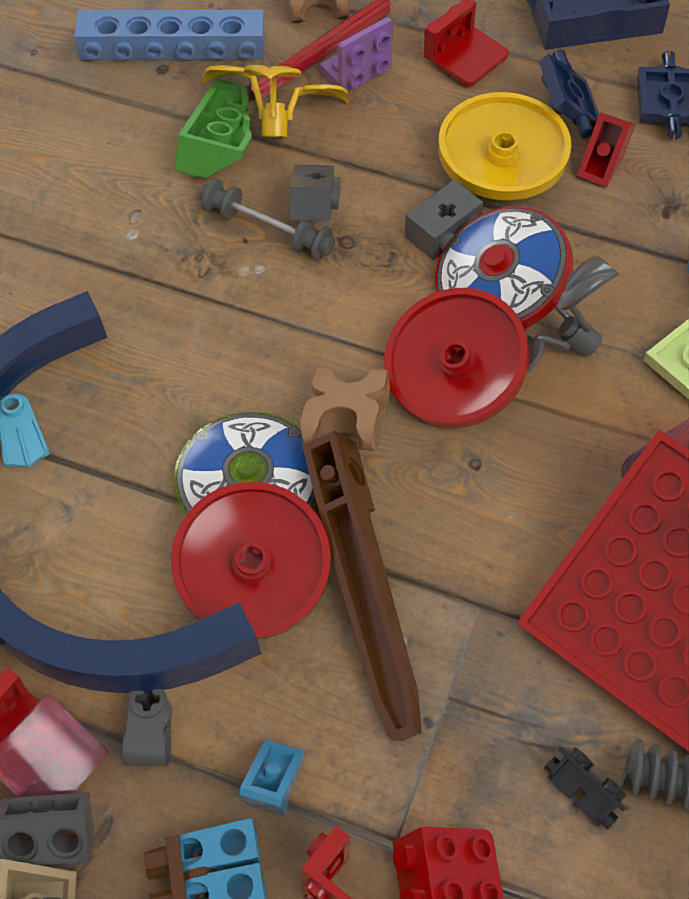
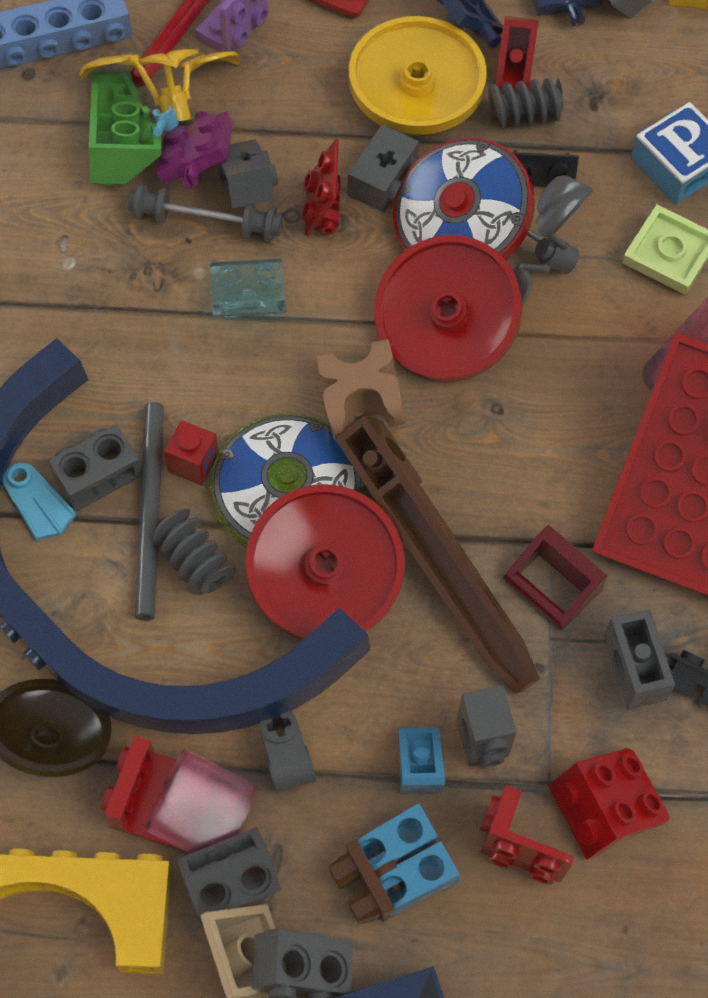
camera: 20 degrees left, 5 degrees up
(80, 421) = (100, 474): none -> dark grey brick
(112, 470) = (149, 512): none -> dark grey piece
(134, 515) = (190, 554): none -> dark grey piece
(169, 424) = (191, 452): none -> red brick
(259, 131) = (164, 121): none -> medium azure hand
(276, 160) = (195, 148): none -> magenta plate
(278, 293) = (247, 288): none -> clear light blue bracket
(345, 762) = (486, 726): none -> dark grey brick
(381, 229) = (323, 193): none -> red hinge
(490, 628) = (569, 564): none -> dark red tile
(525, 743) = (639, 659): none -> dark grey brick
(585, 248) = (546, 167): none -> black hinge
(599, 193) = (526, 101): none -> dark grey piece

